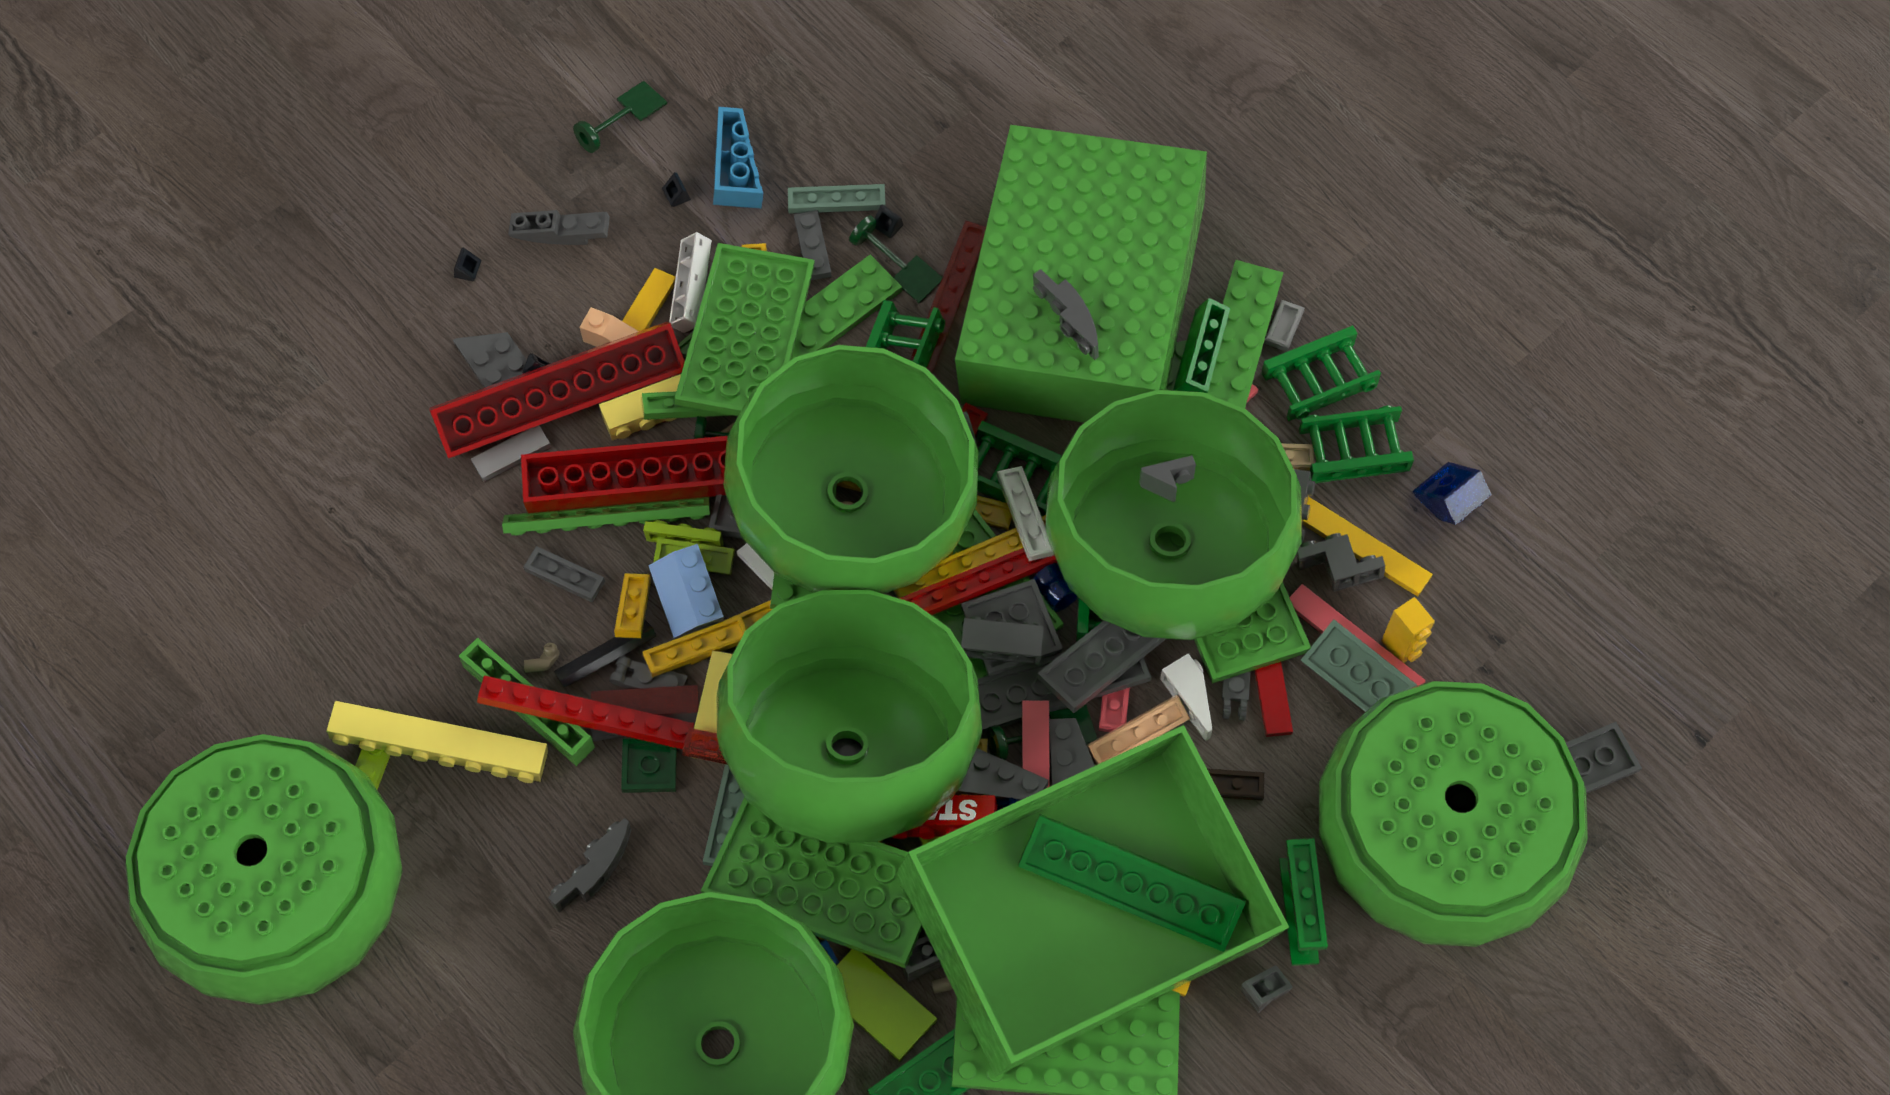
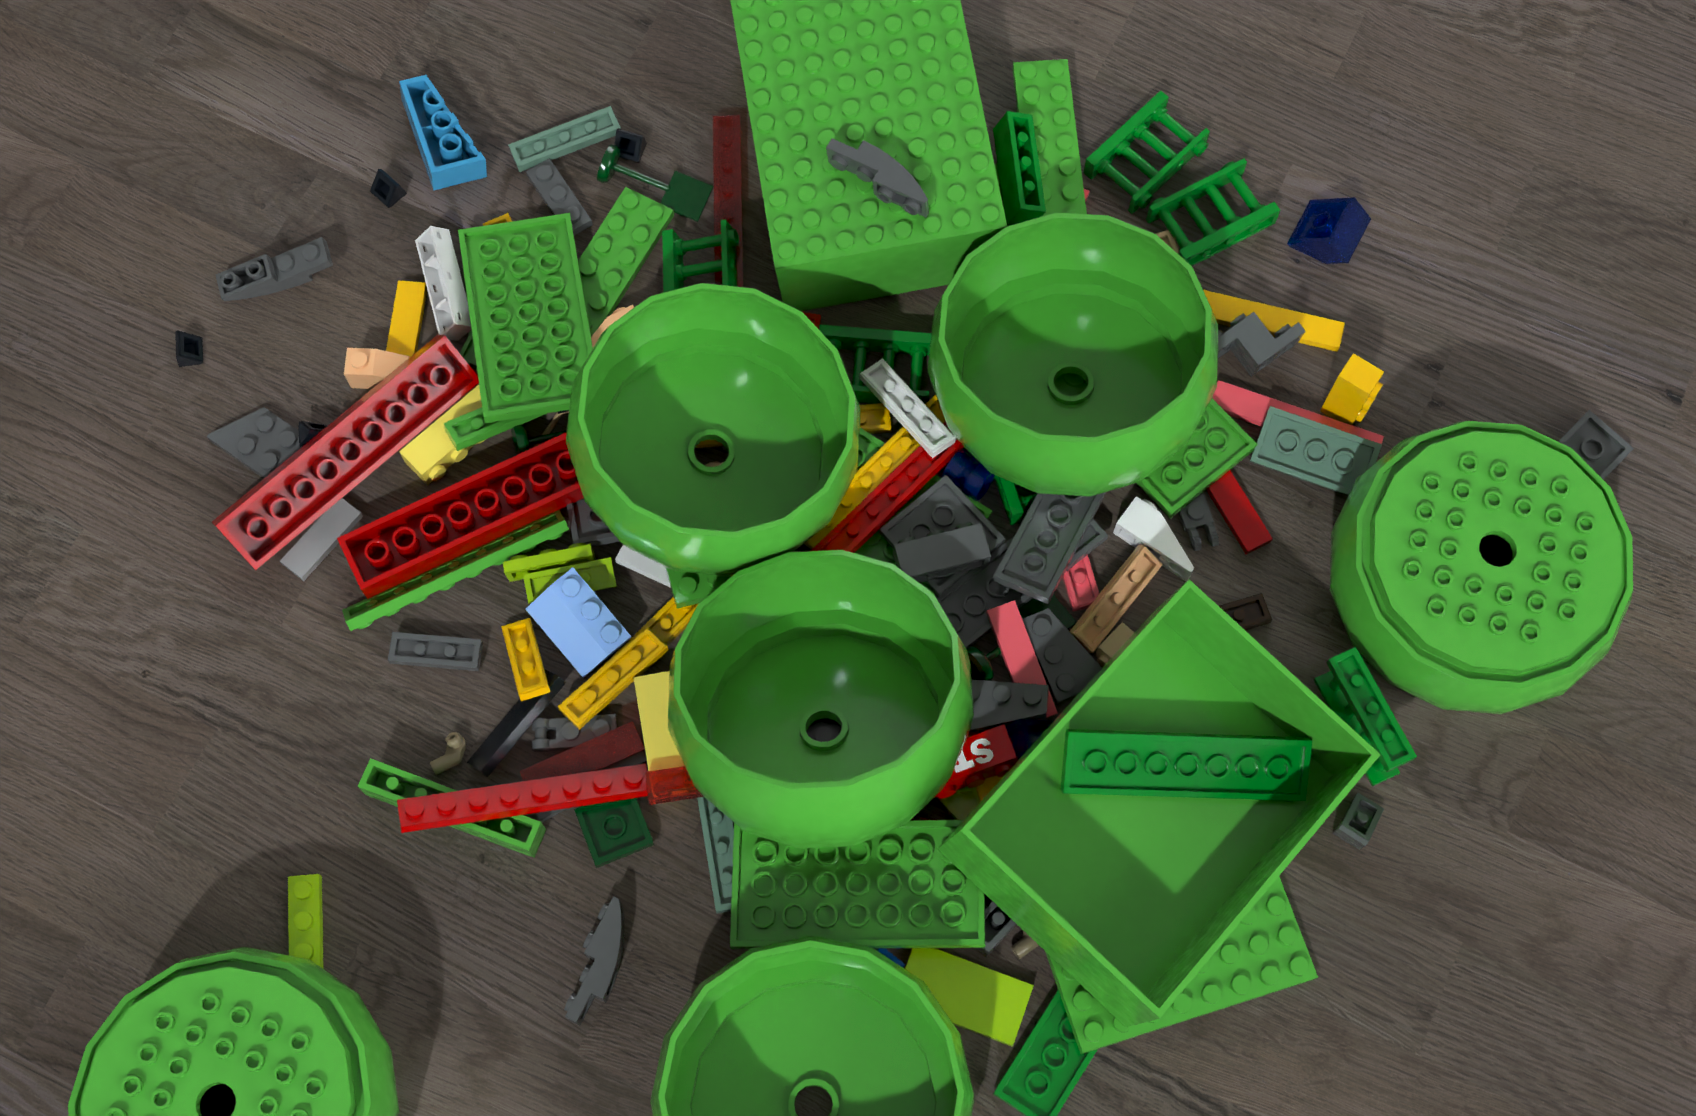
camera: 20 degrees left, 5 degrees up
(437, 742) = (370, 890): light yellow brick -> none
(639, 100) = (305, 104): dark green piece -> none
(1162, 477) = (1061, 317): dark grey slope -> none
(1284, 325) = (1088, 114): light grey tile -> none

